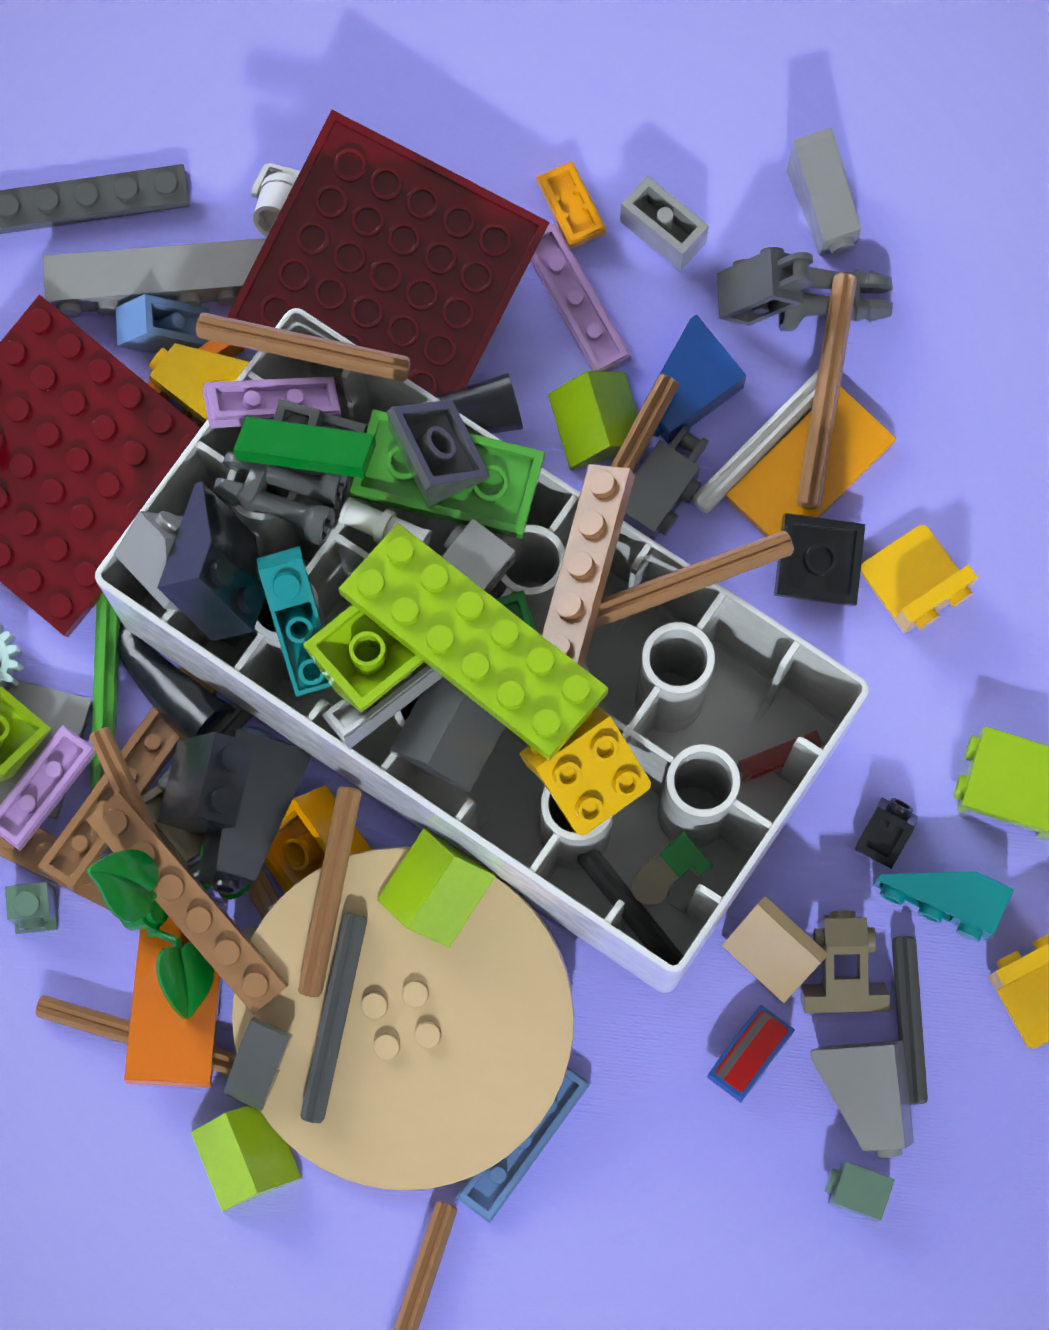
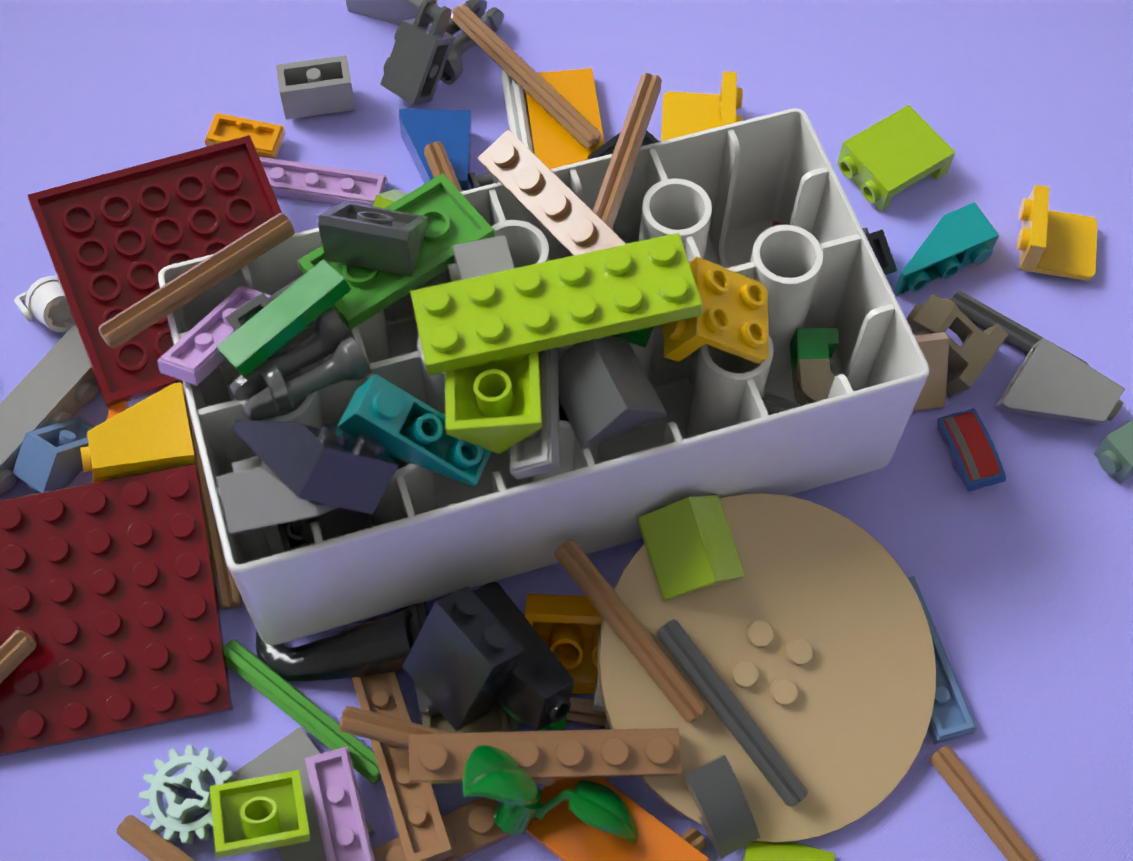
camera: 55 degrees left, 15 degrees down
(376, 521) = (385, 326): white pin -> none

